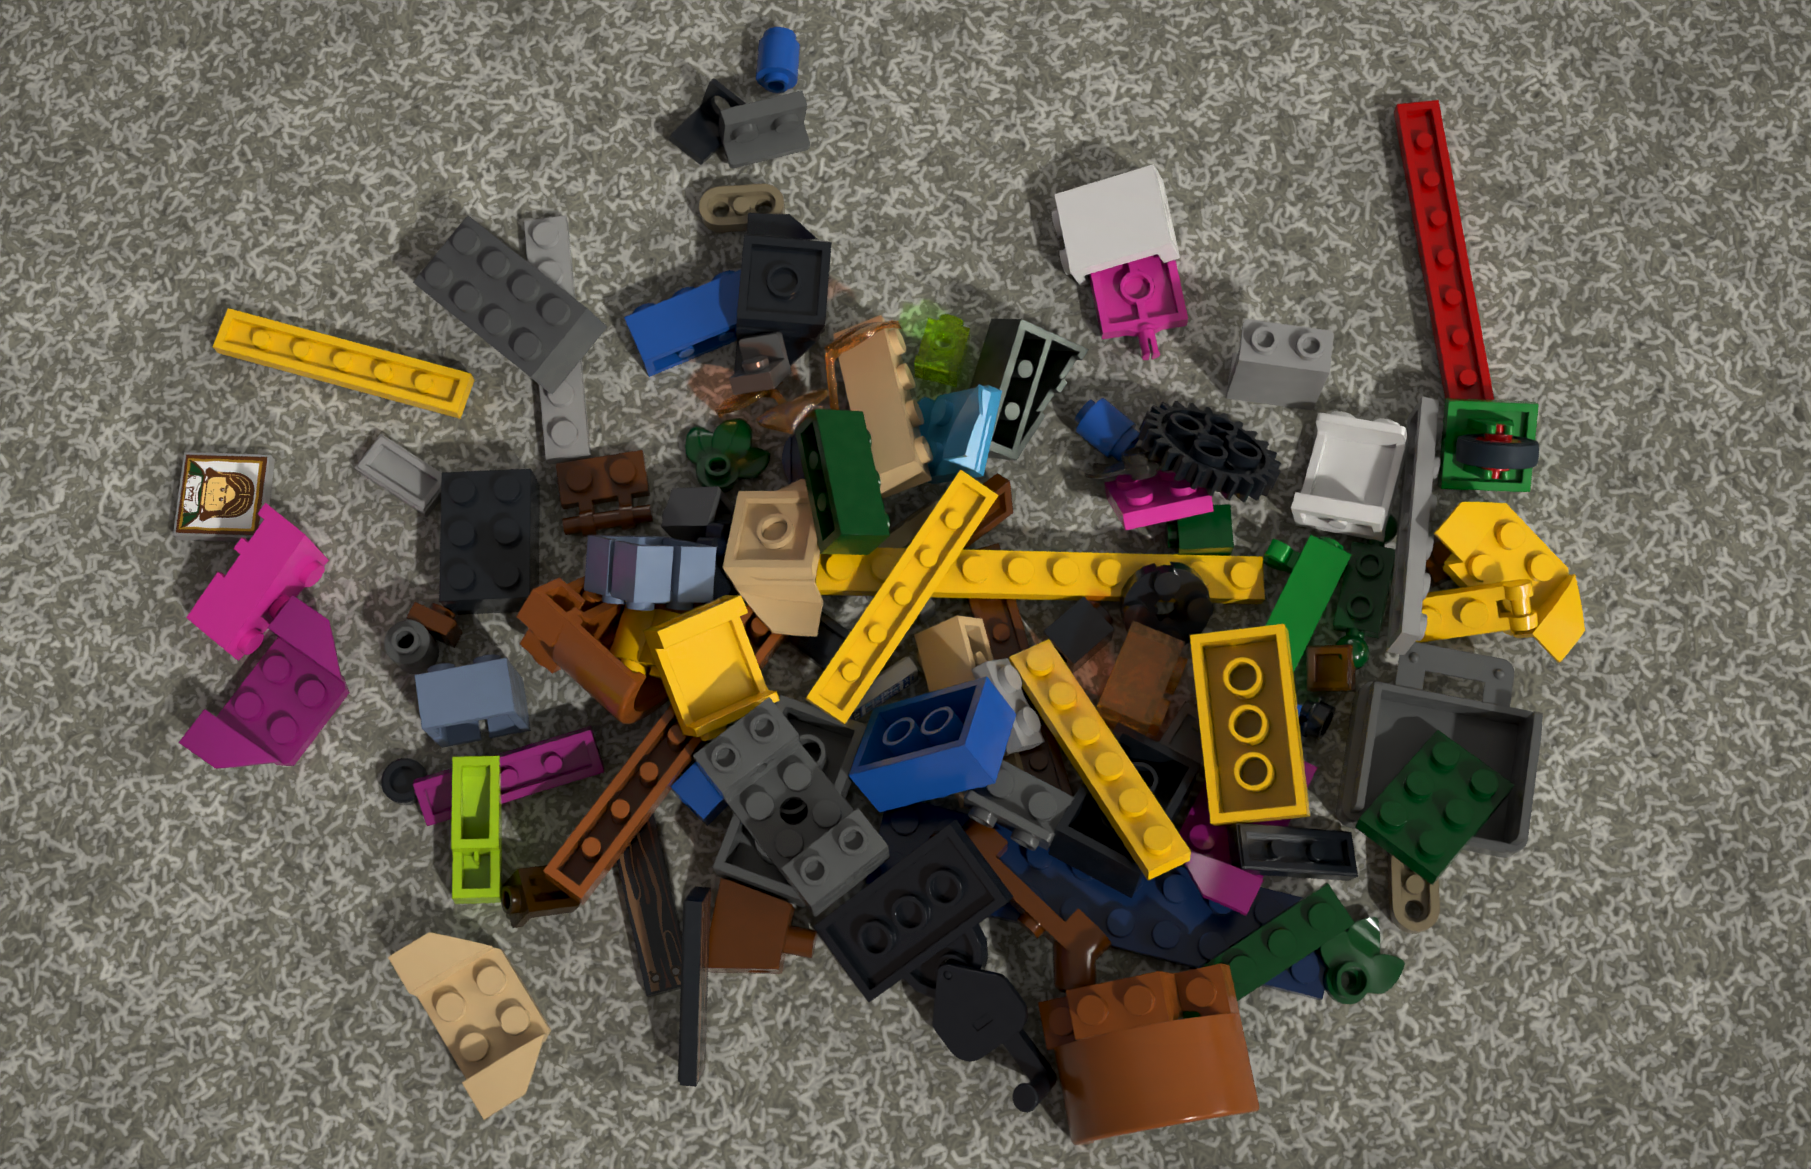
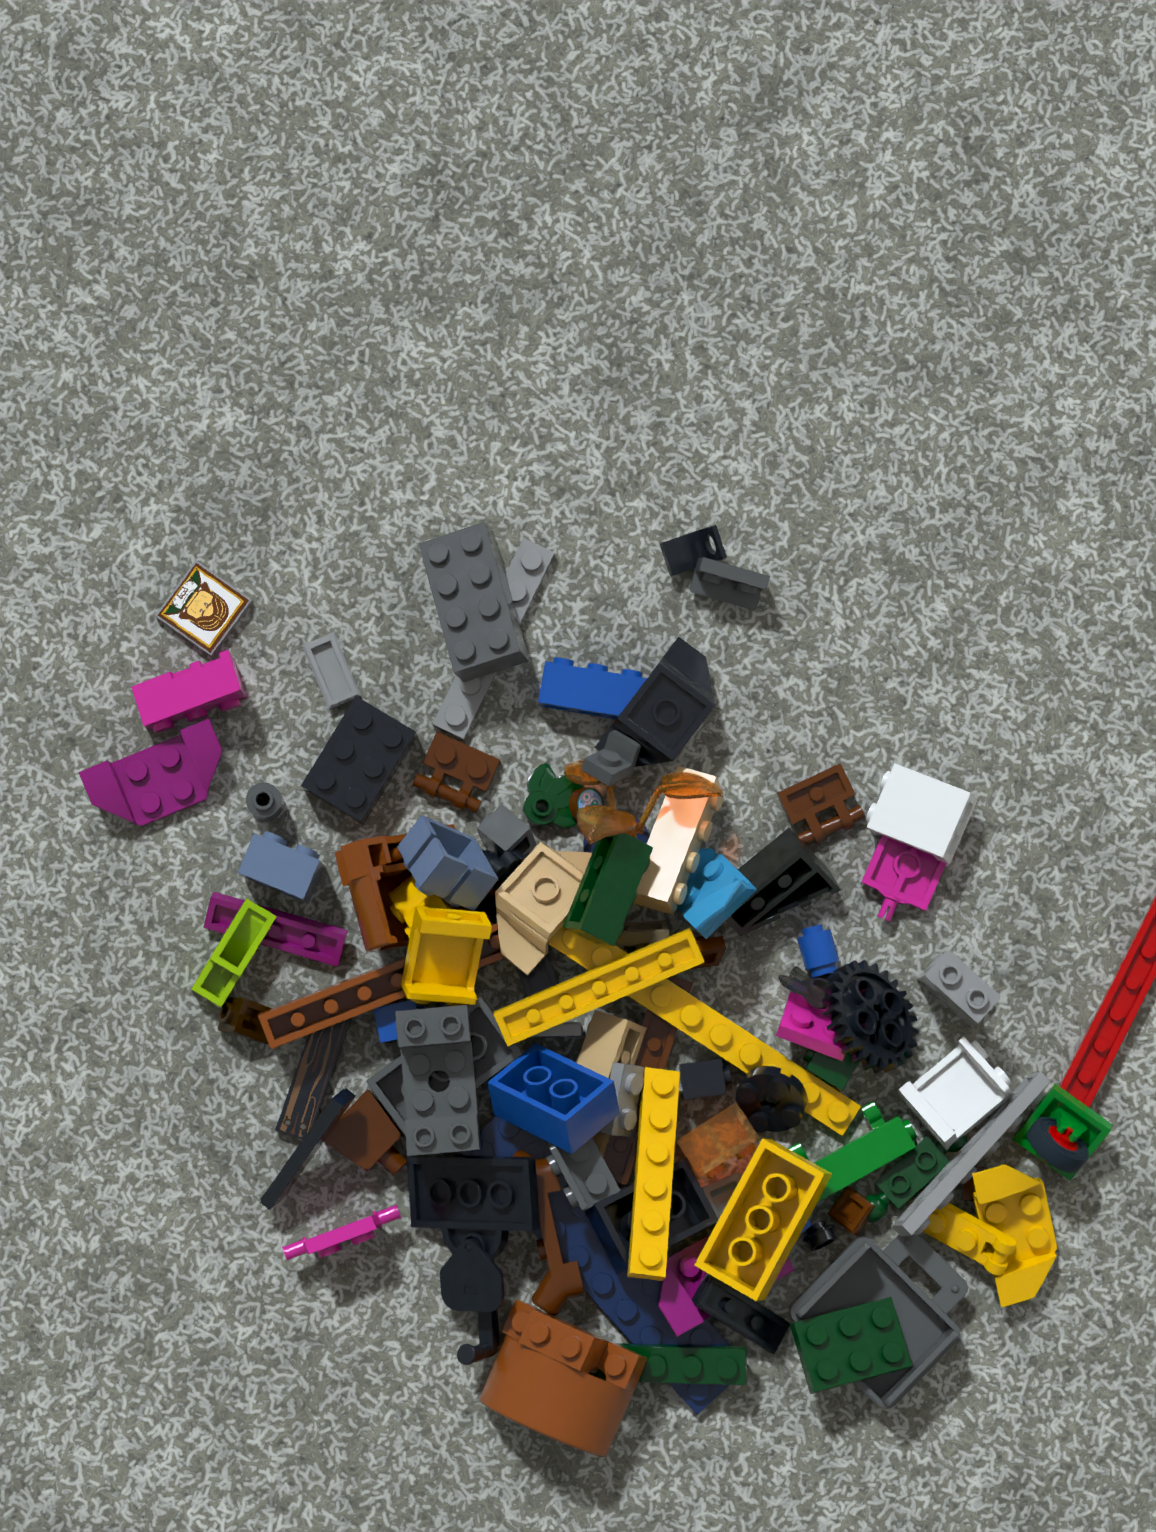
camera: 30 degrees right, 10 degrees up
(344, 363) = (339, 564): yellow plate -> none
(399, 778) = (205, 883): black tile -> none
(437, 621) = (291, 792): reddish brown plate -> none
(478, 1012) = (163, 1074): tan piece -> none
(739, 202) = (679, 625): dark tan plate -> none
(763, 441) = (584, 797): none -> tile
(778, 60) = (774, 531): blue brick -> none
(786, 1075) = (330, 1241): none -> dark pink plate
(942, 363) = (738, 832): clear neon green brick -> none
(997, 279) = (816, 795): none -> reddish brown plate
(1359, 956) = (739, 1407): dark green plate -> none
(1410, 887) = (796, 1383): dark tan plate -> none

